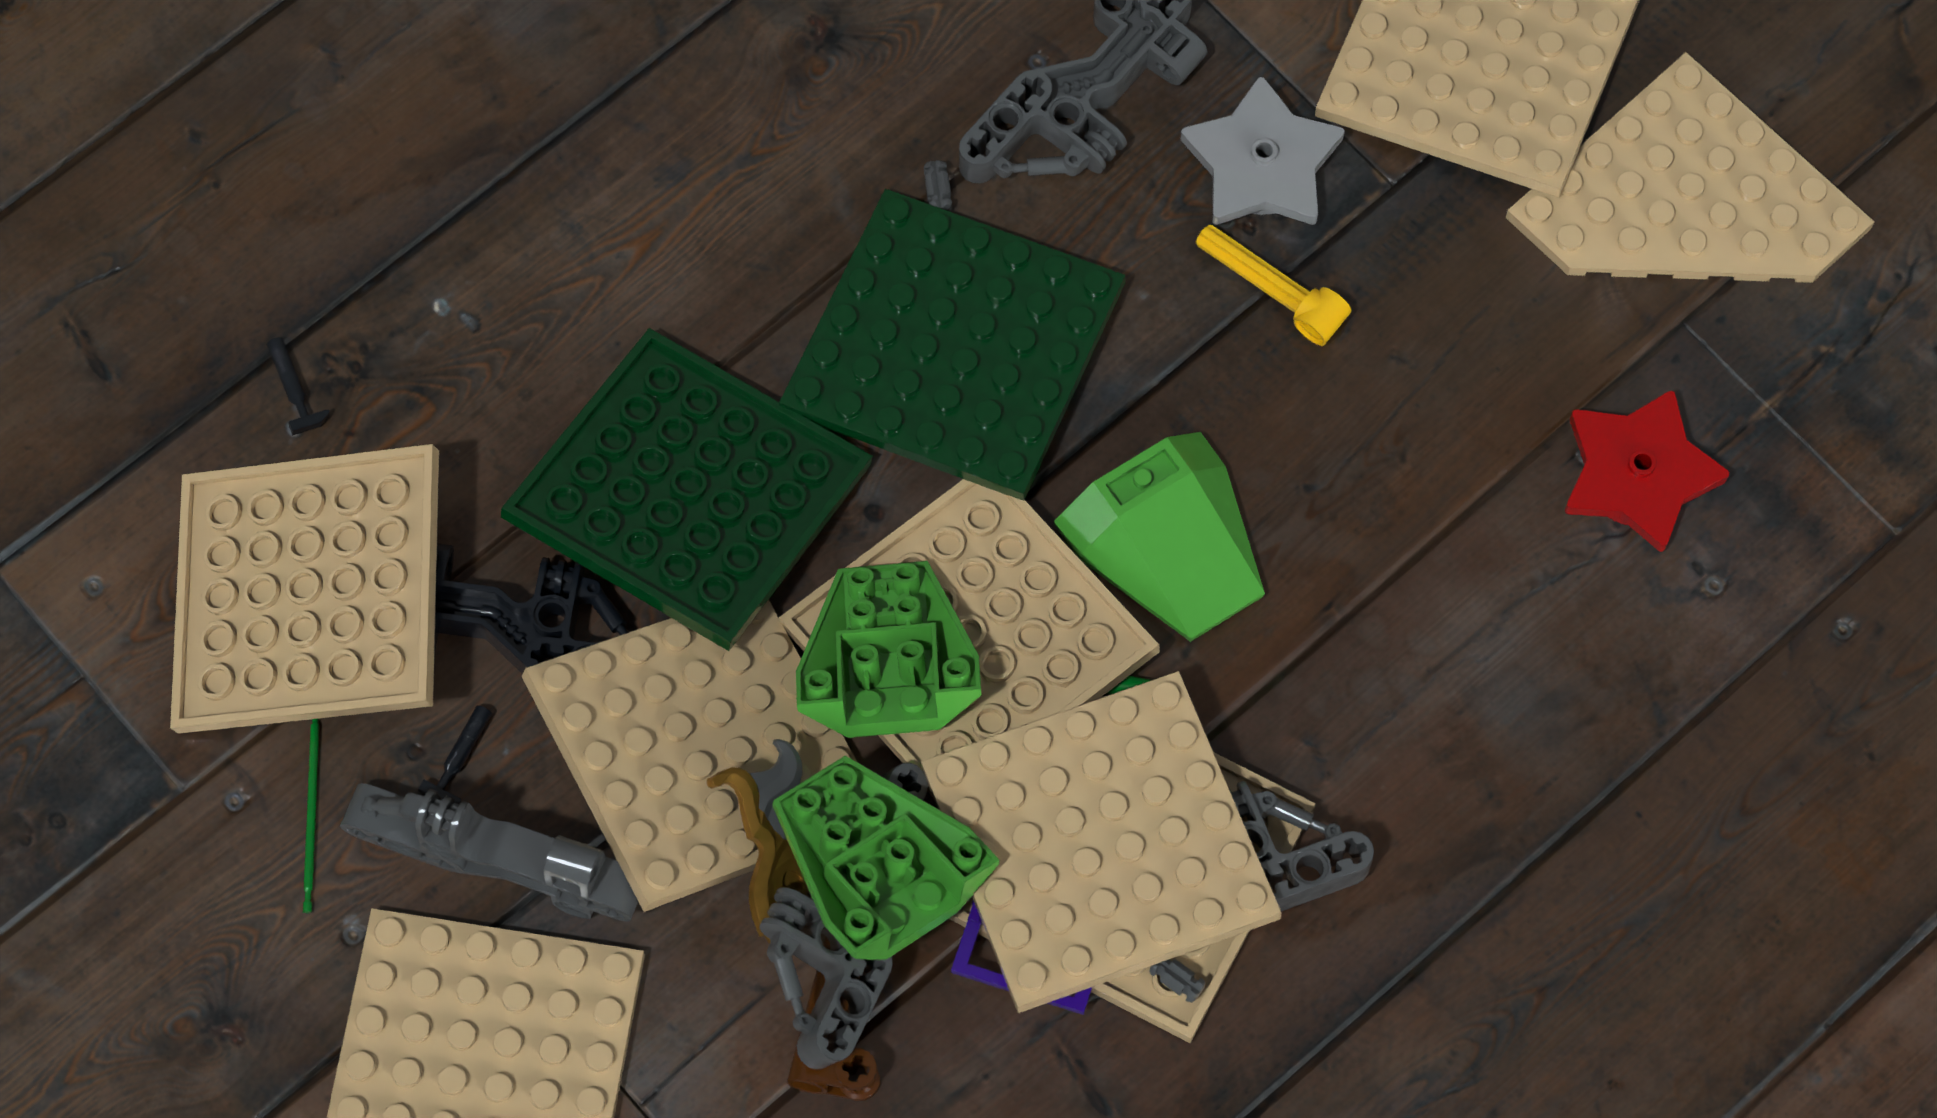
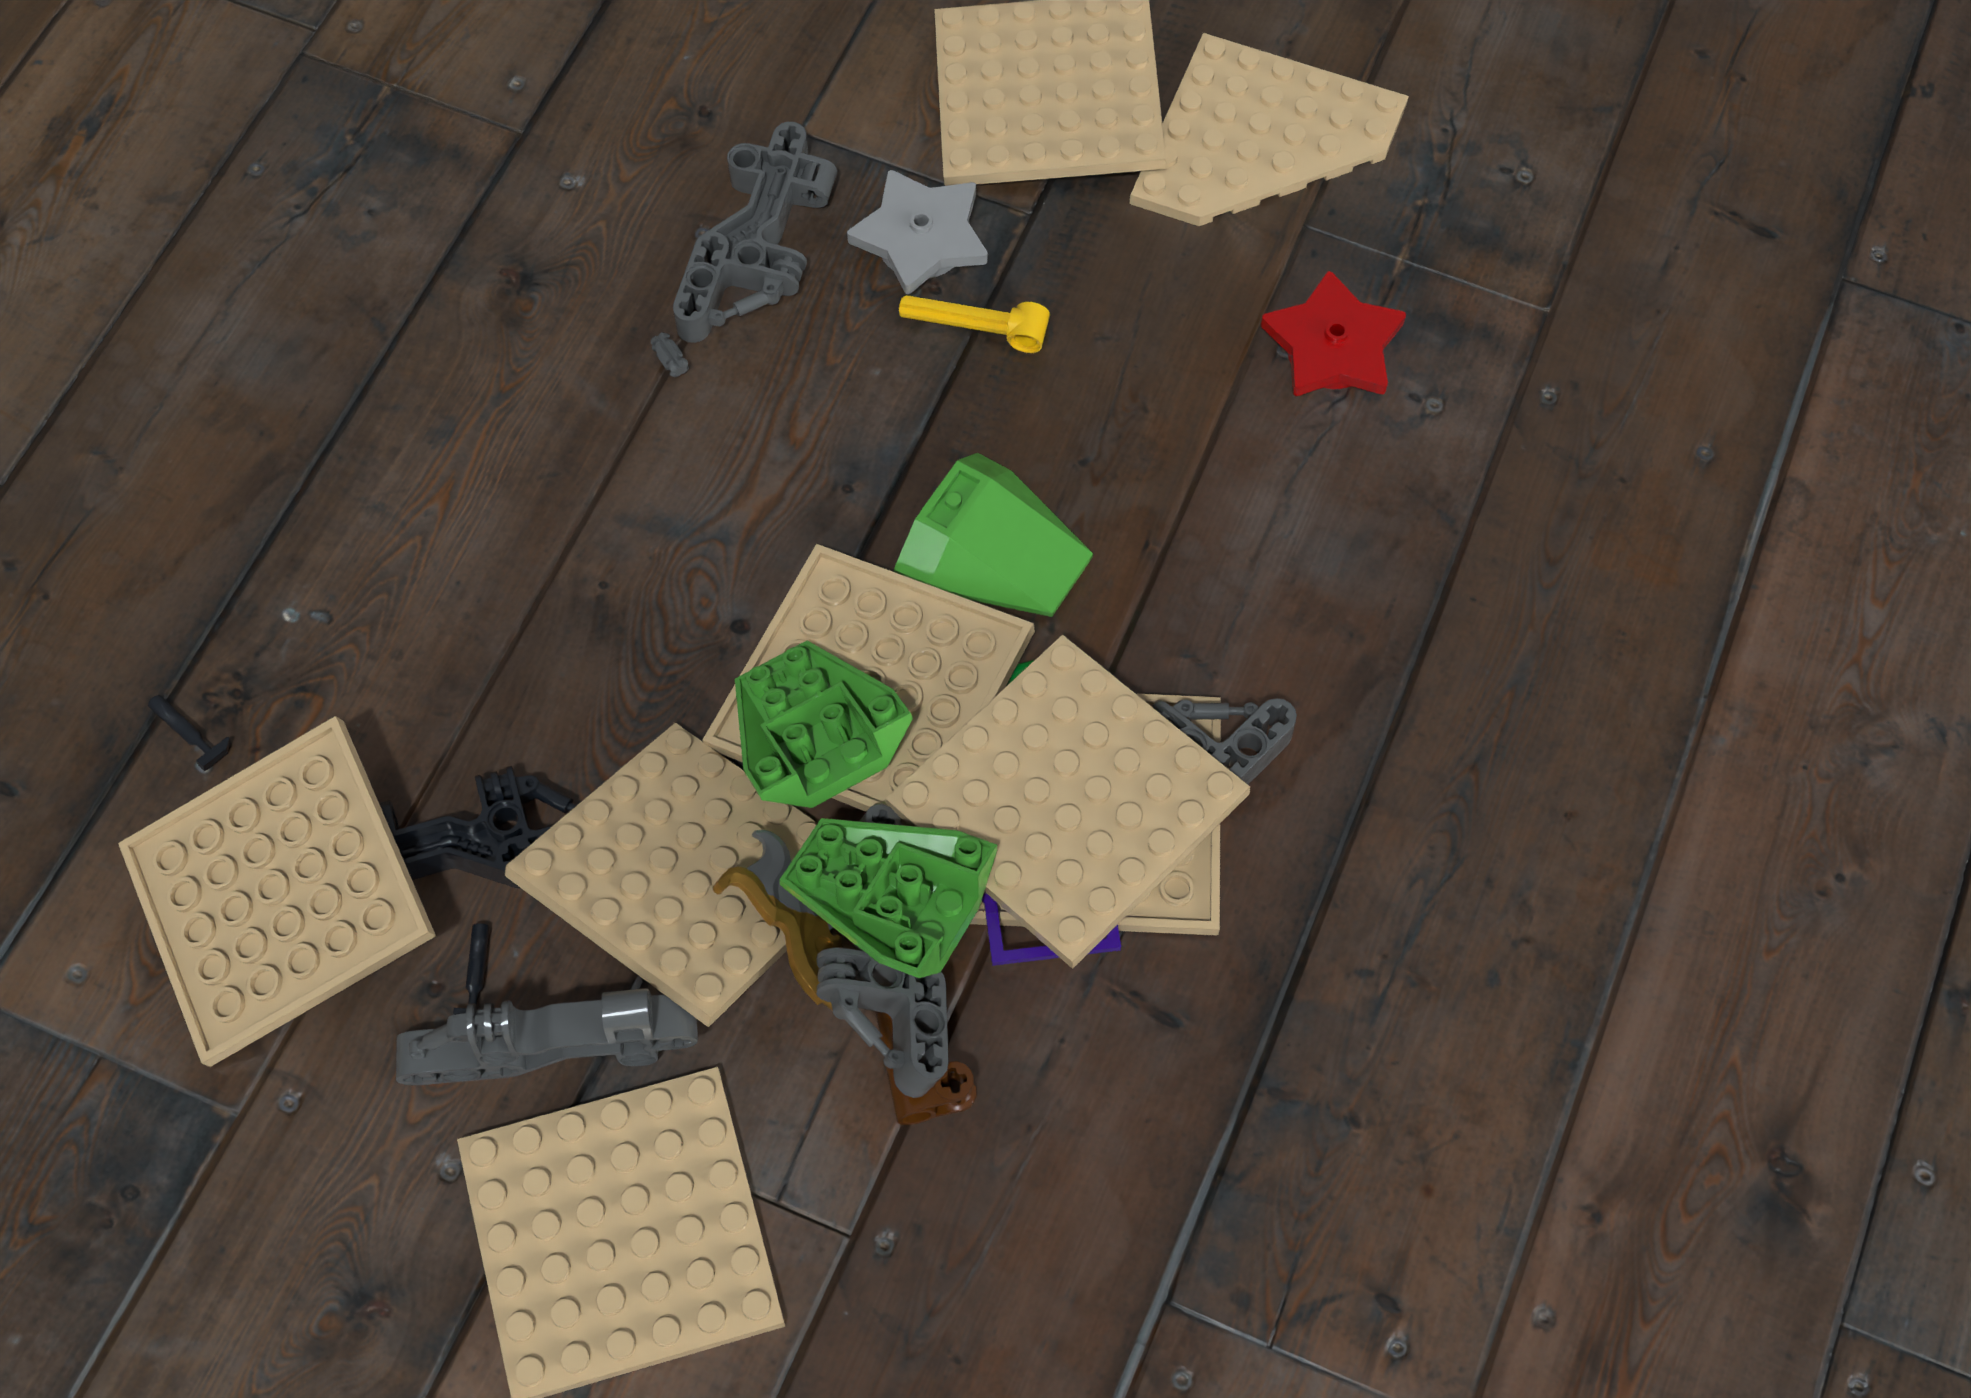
camera: 25 degrees left, 5 degrees down
(311, 815) = (364, 1082): green piece -> none
(687, 488) = (574, 668): dark green plate -> none
(953, 344) = (742, 467): dark green plate -> none
(1178, 978) = (1185, 884): dark grey piece -> none

